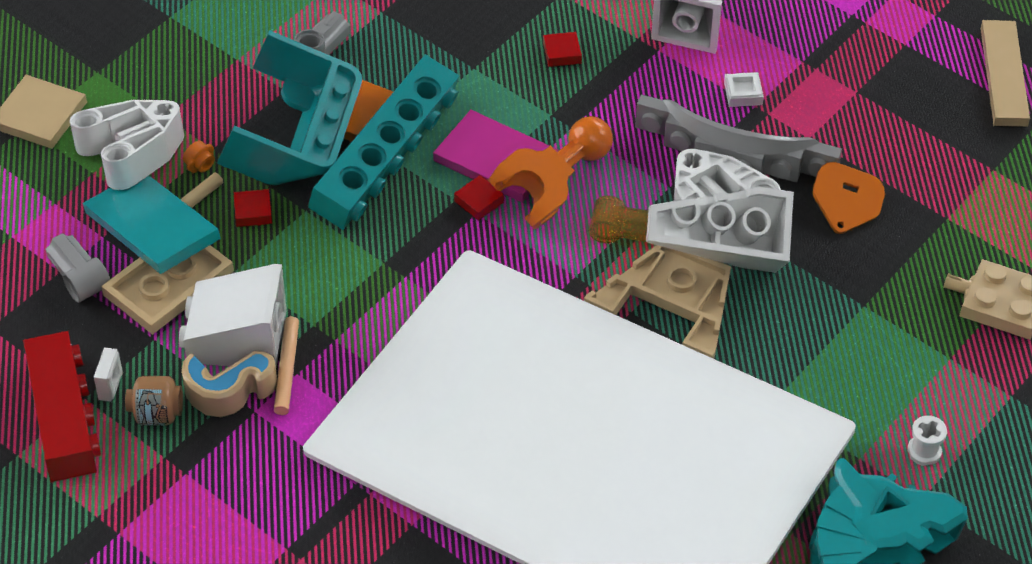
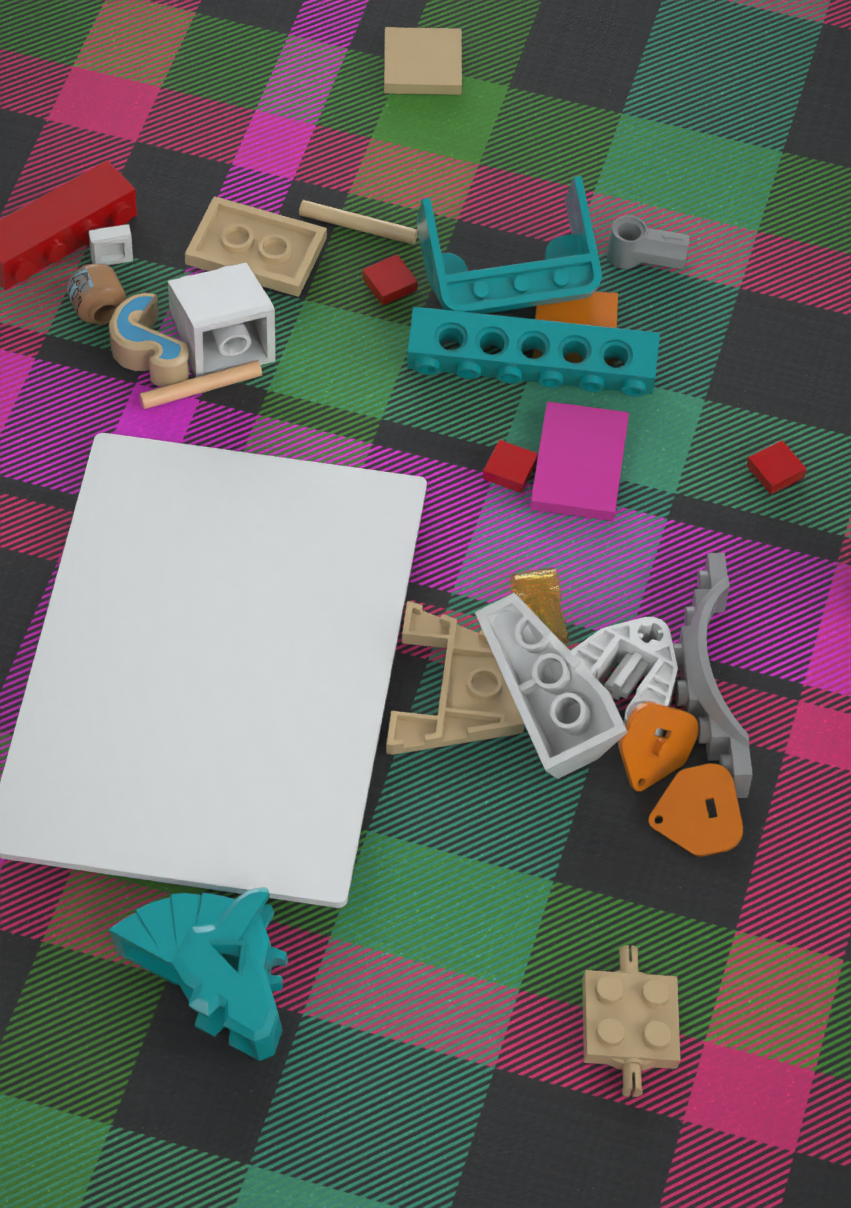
camera: 65 degrees right, 5 degrees up
(80, 272) = (230, 172): light grey piece -> none
(131, 137) = (420, 149): white connector -> none
(152, 223) = (314, 201): teal tile -> none
(199, 157) = (438, 202): orange plate -> none
(547, 171) = (561, 507): orange piece -> none
(743, 89) = (818, 661): white tile -> none
(782, 183) = (654, 756): none -> orange piece
(927, 435) = (380, 994): white bush -> none

